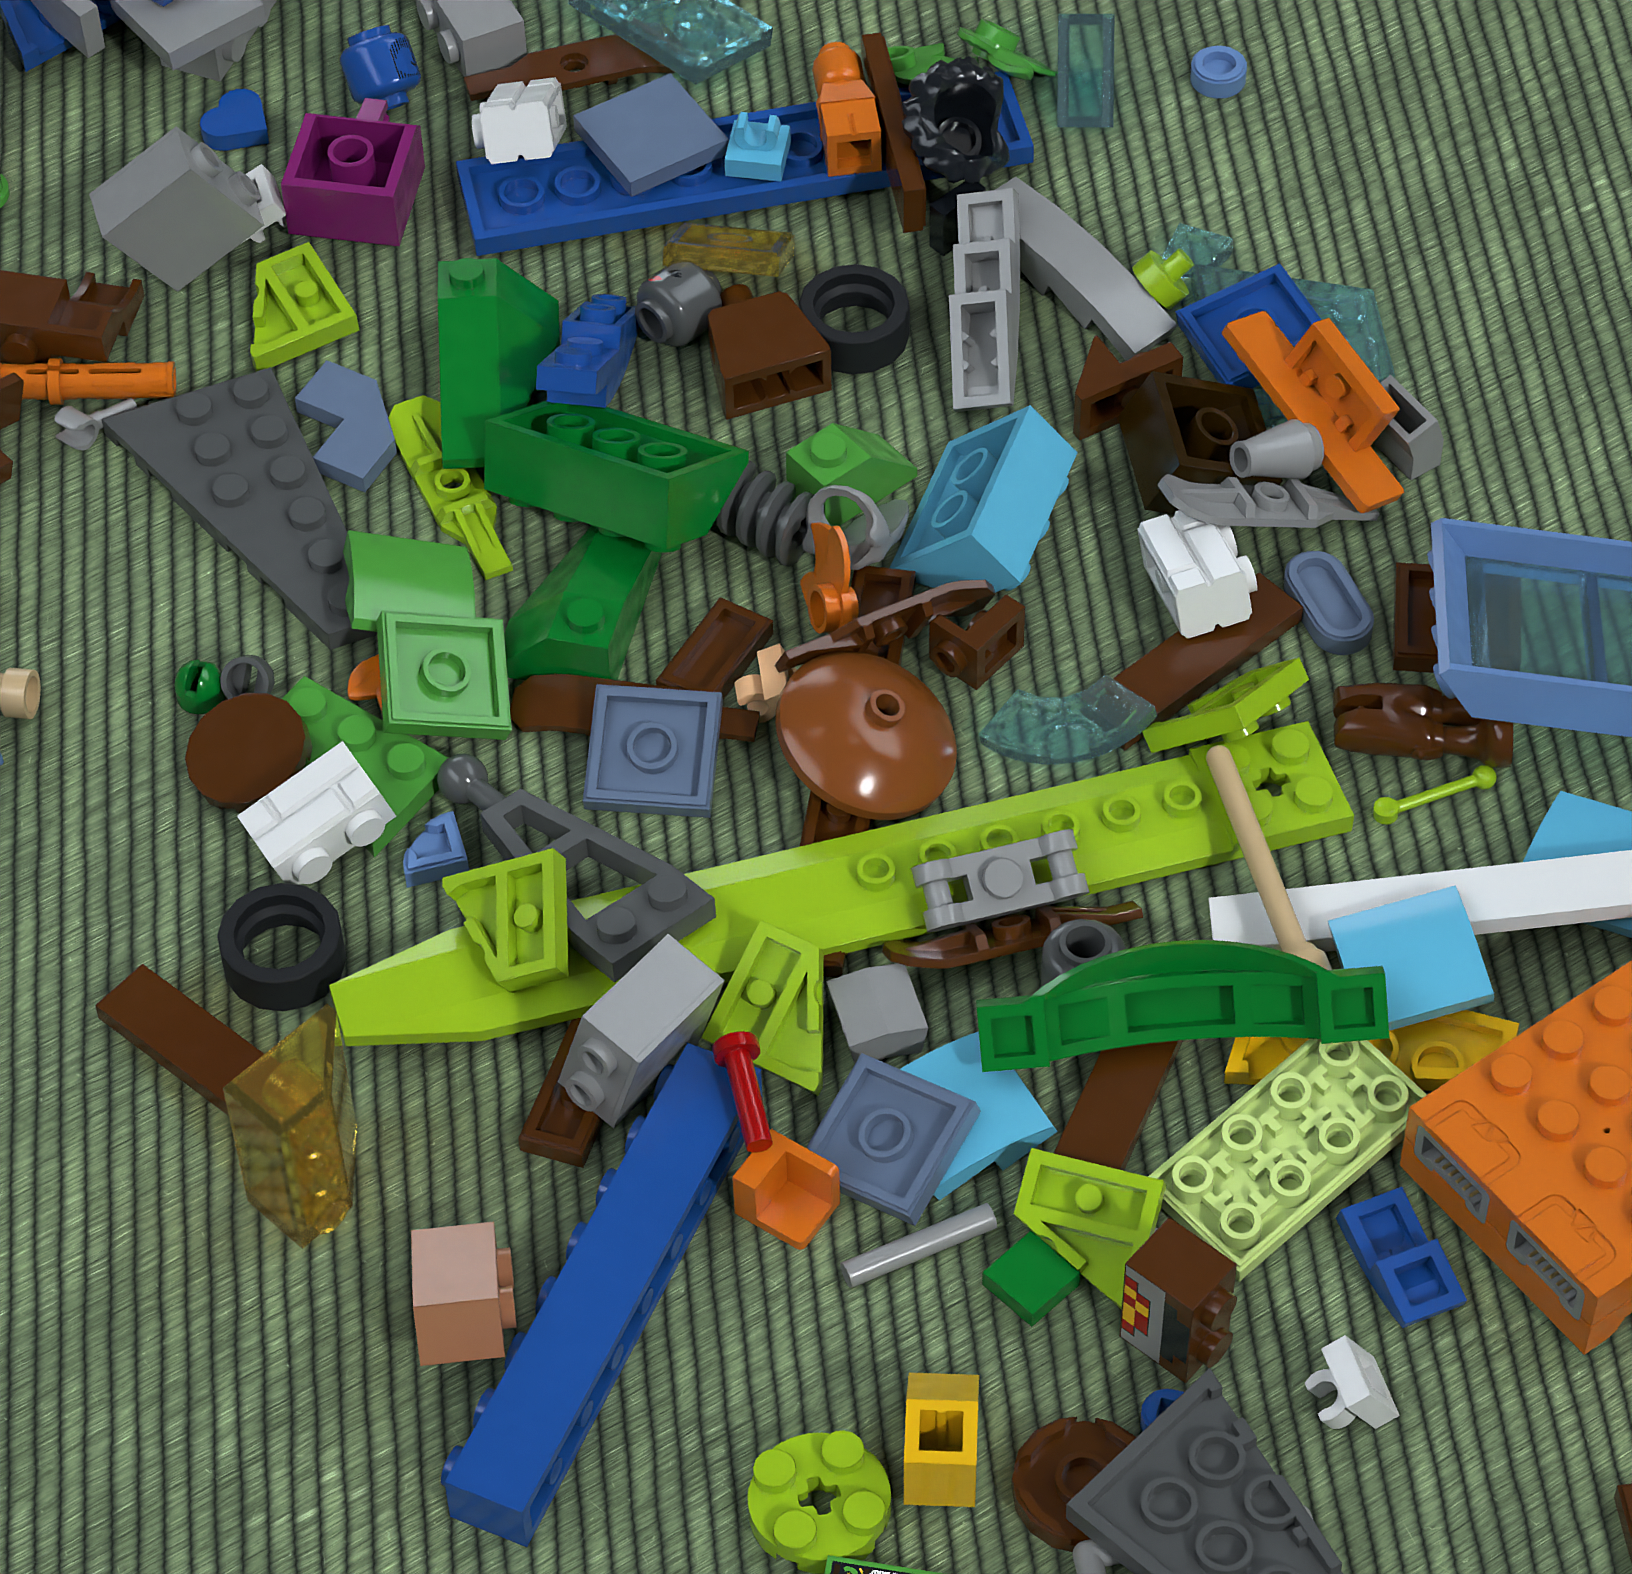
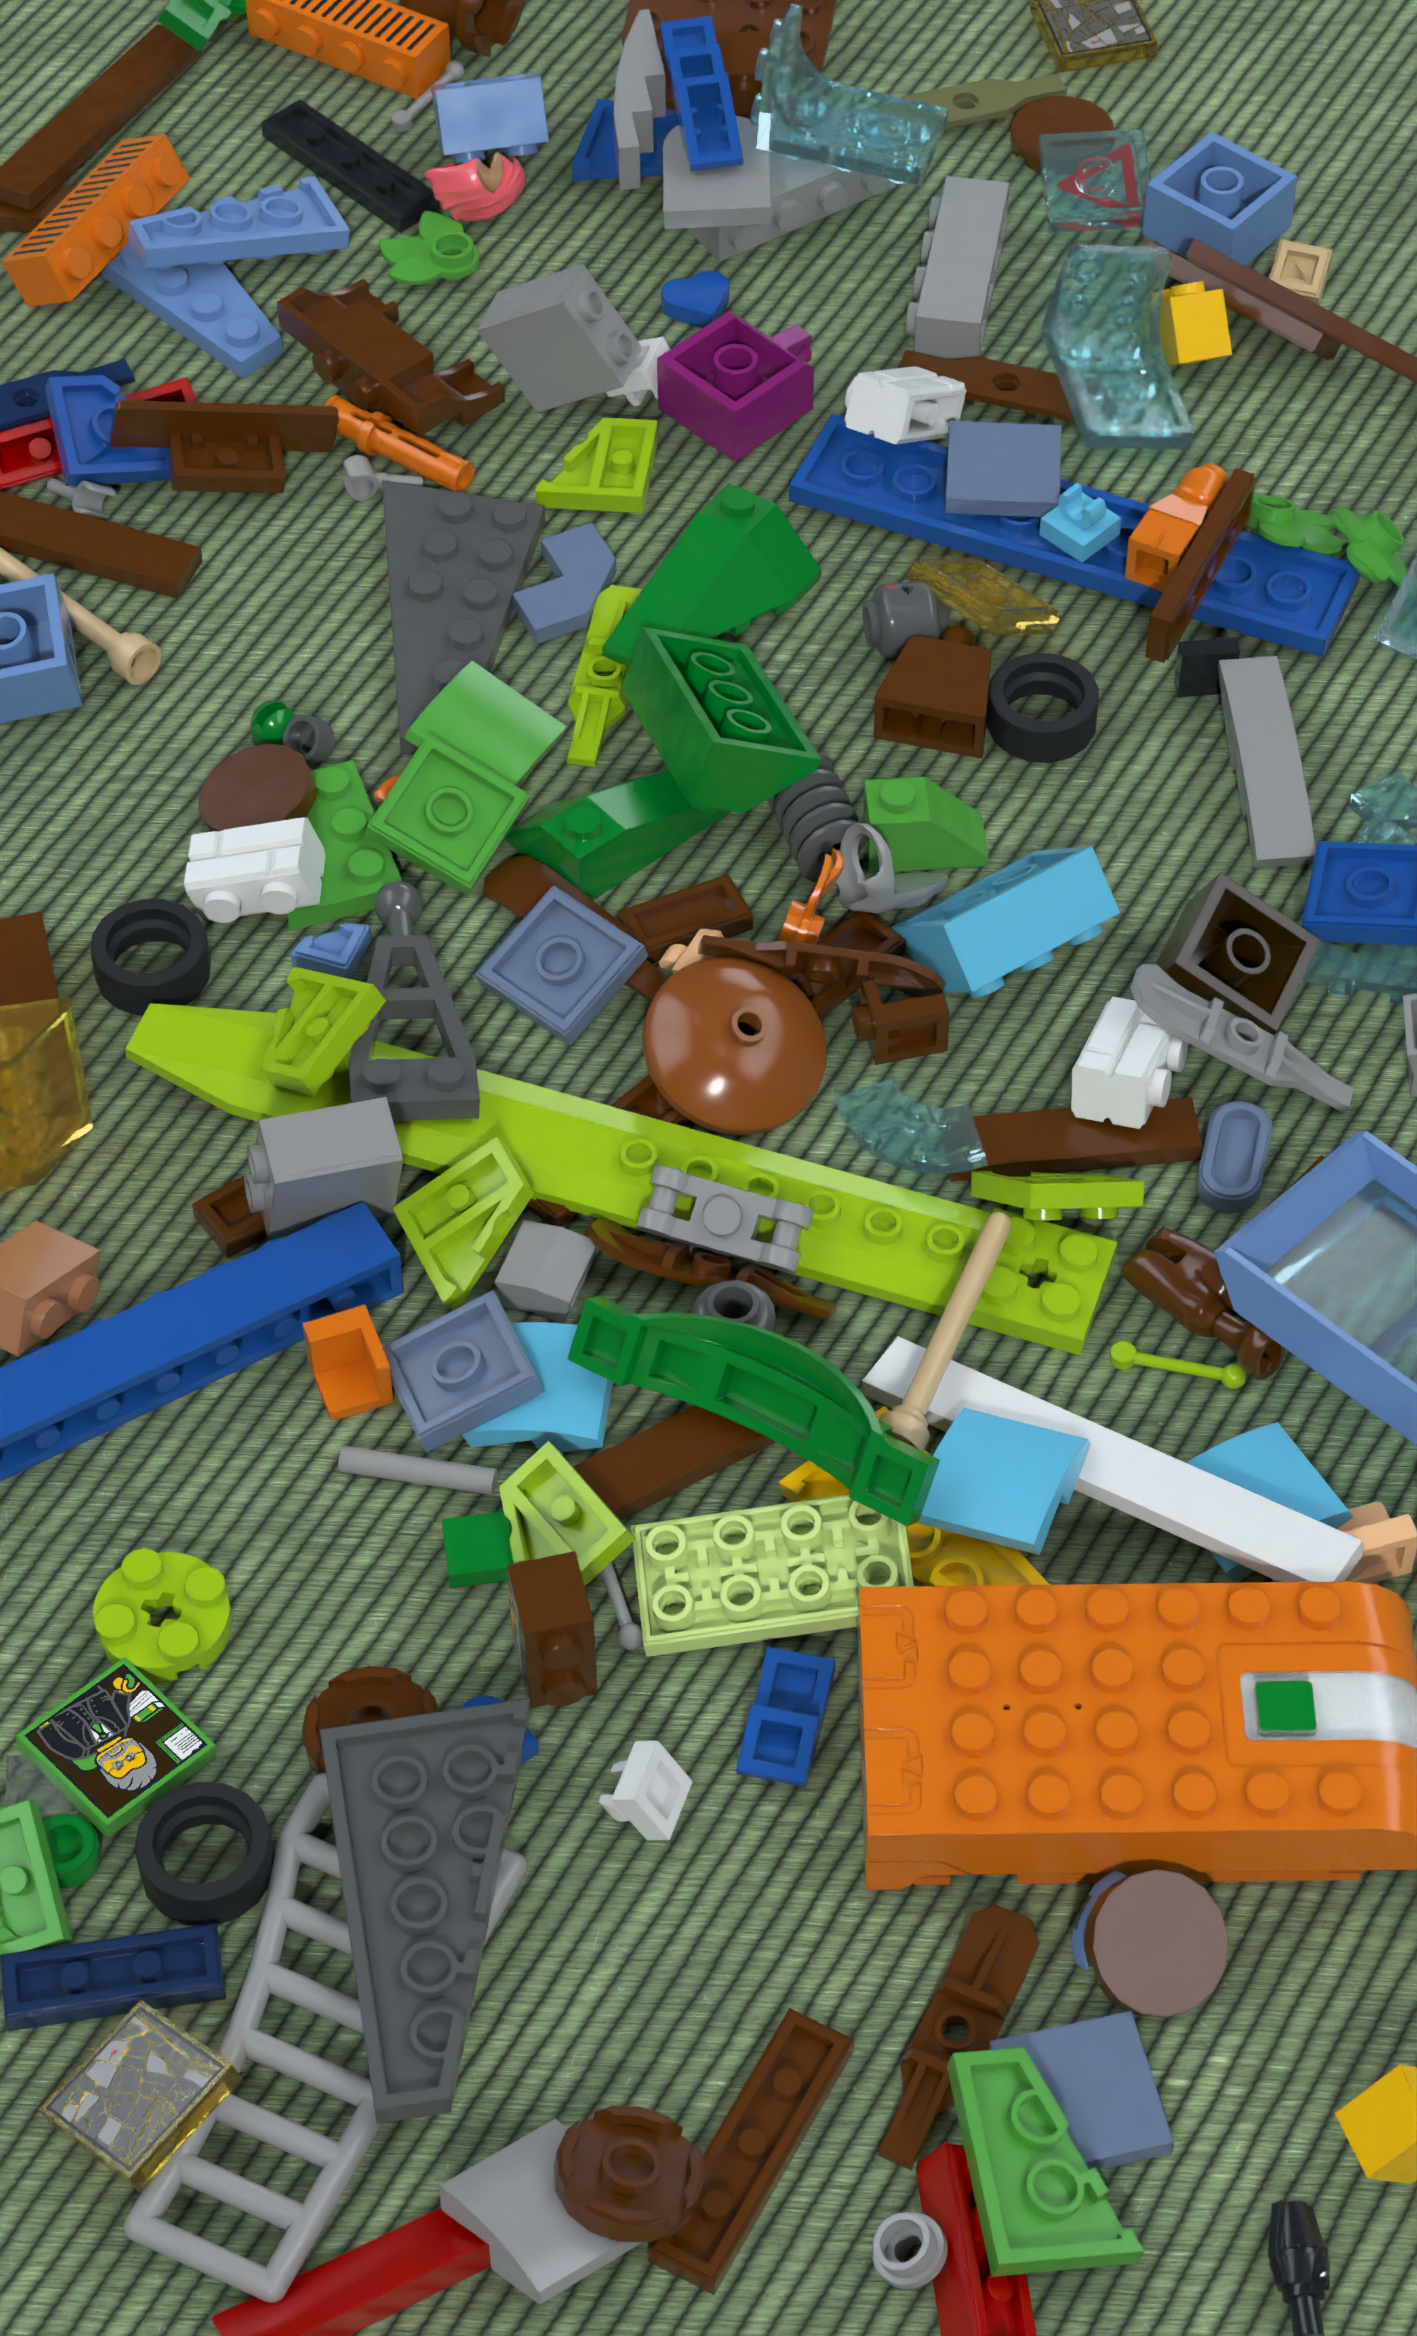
camera: 35 degrees right, 0 degrees up
(380, 66) = (837, 308): blue head -> none
(591, 354) = (791, 625): blue slope -> none
(736, 1053) = (381, 1228): red piece -> none
(941, 1439) = (284, 1620): yellow slope -> none
(957, 120) = (1248, 580): black hair -> none
(985, 300) = (1162, 747): light grey slope -> none
(1109, 385) = (1196, 862): reddish brown slope -> none
(1163, 276) = (1336, 808): lime tile -> none
(1281, 452) = (1280, 1001): light grey cone -> none
(1330, 388) = (1359, 980): orange bracket -> none

